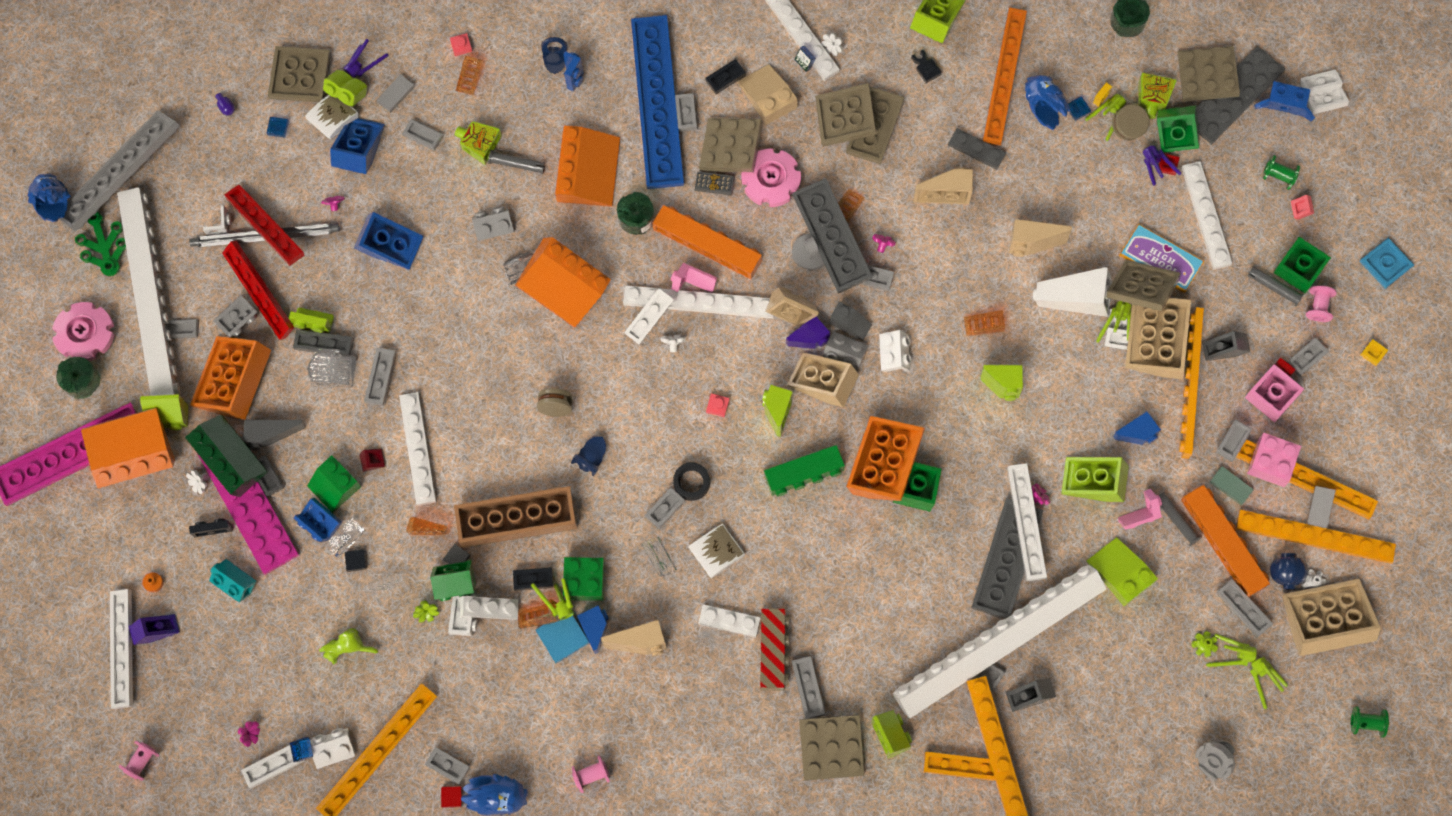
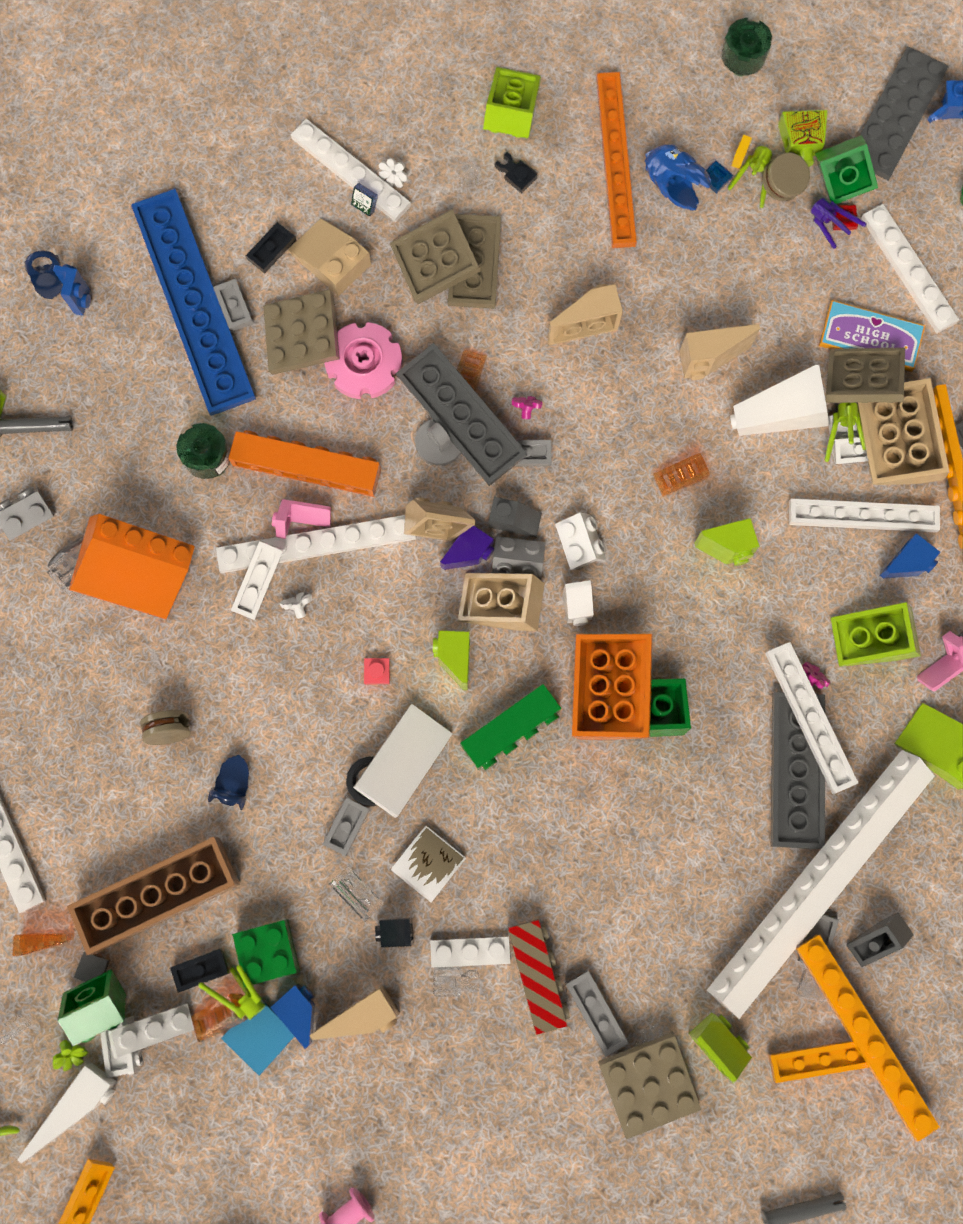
camera: 20 degrees left, 5 degrees up
(425, 643) = (82, 1097): none -> white slope
(587, 167) = (125, 407): orange slope -> none
(680, 590) = (395, 932): none -> black slope
(714, 183) = (293, 386): dark grey tile -> none
(719, 471) = (403, 761): none -> white tile
(879, 394) = (578, 602): none -> white slope
(977, 149) = (608, 258): dark grey plate -> none
(1113, 389) = (864, 515): none -> white plate
(1208, 73) = (861, 94): dark tan plate -> none

